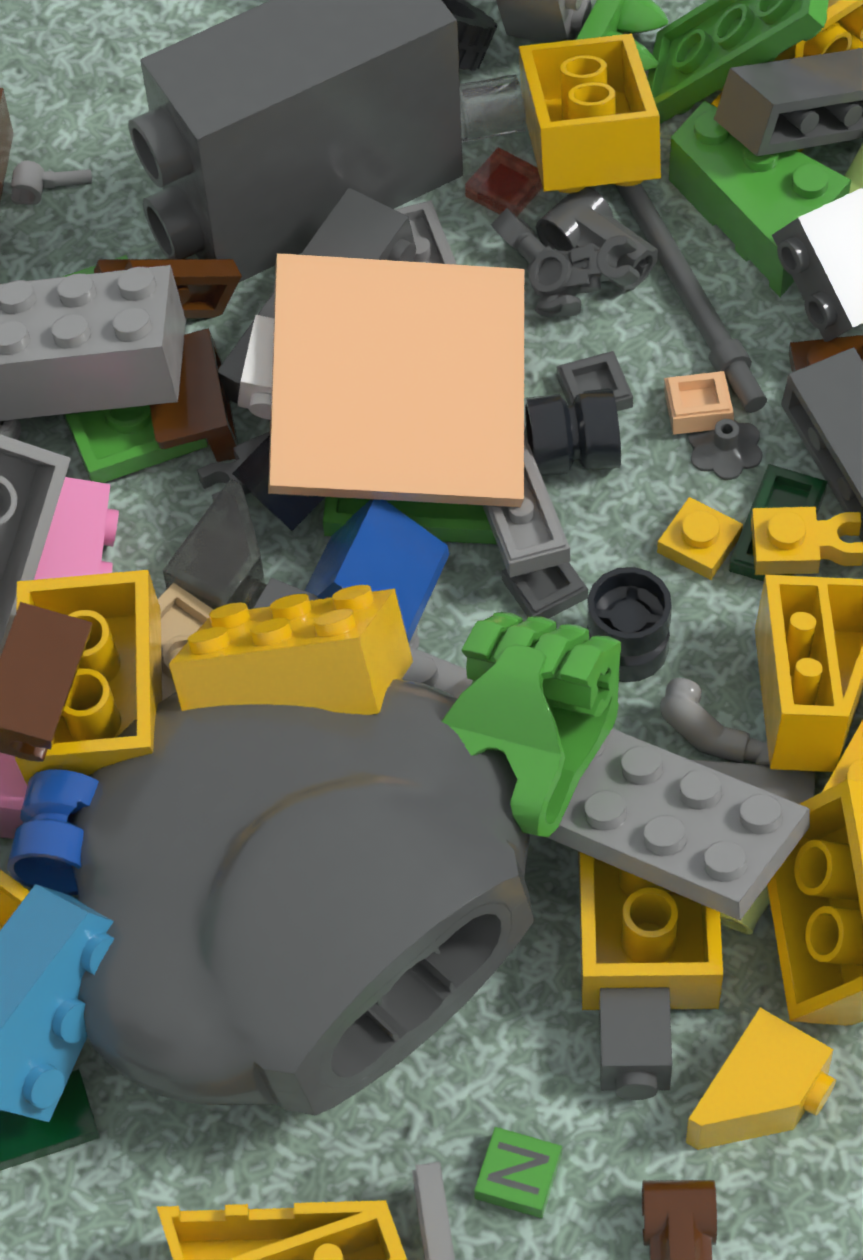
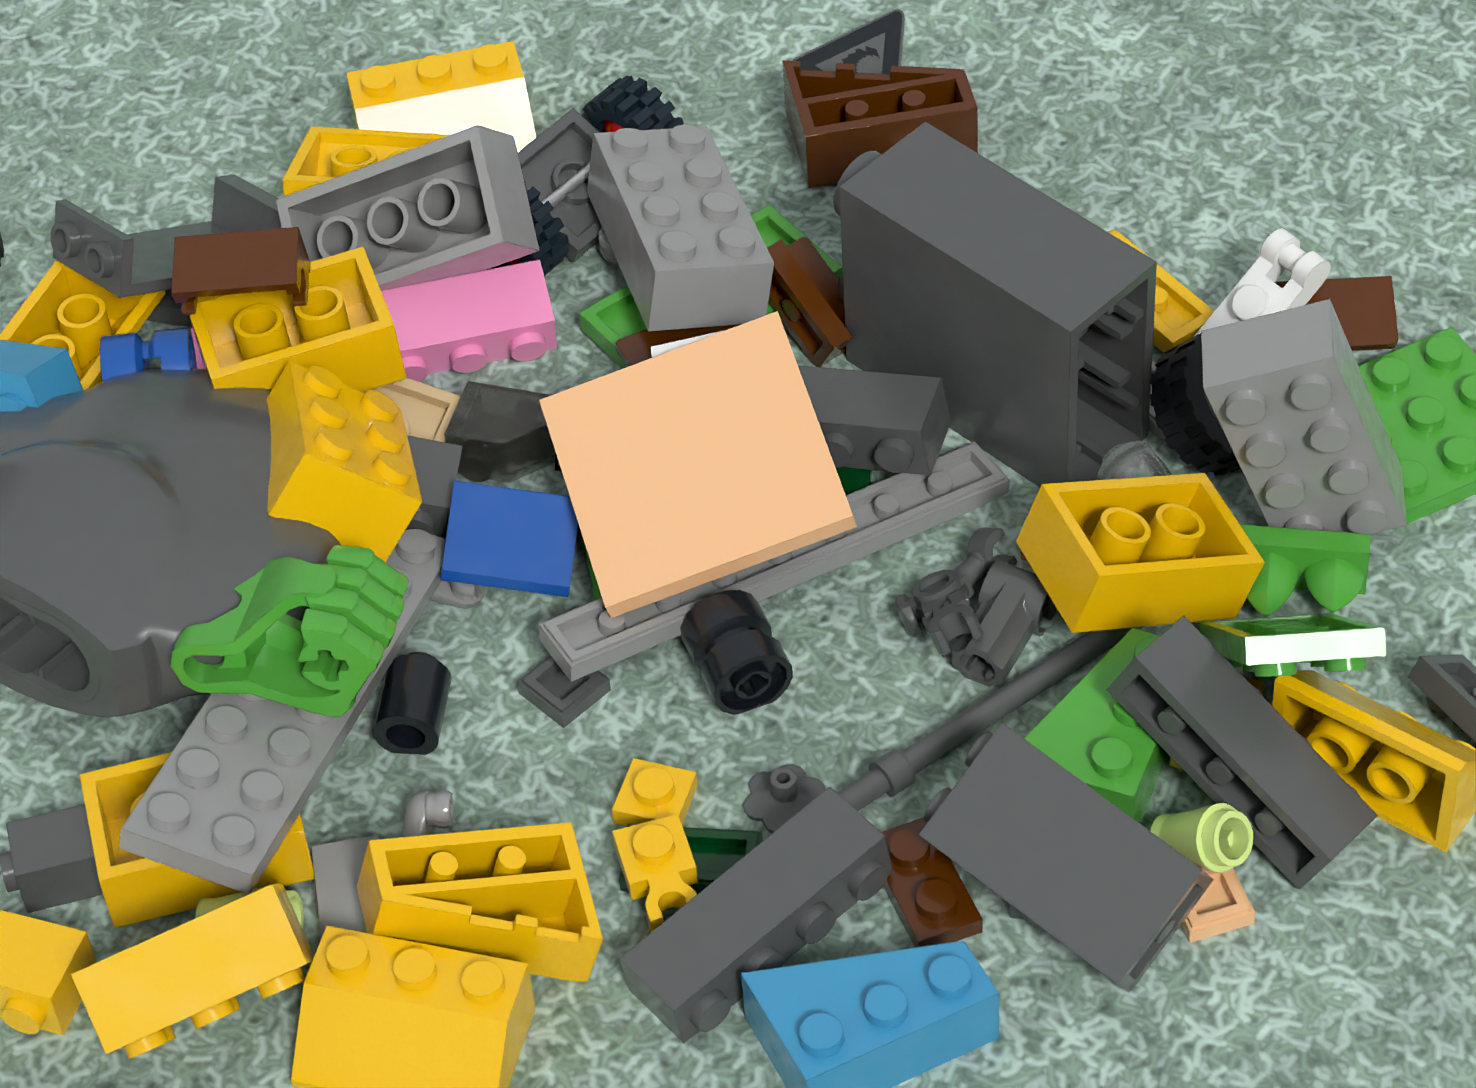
camera: 75 degrees right, 10 degrees down
(593, 374) = (824, 670): dark grey tile -> none
(637, 612) = (509, 745): black wheel -> none
(697, 401) = (824, 757): light nougat tile -> none

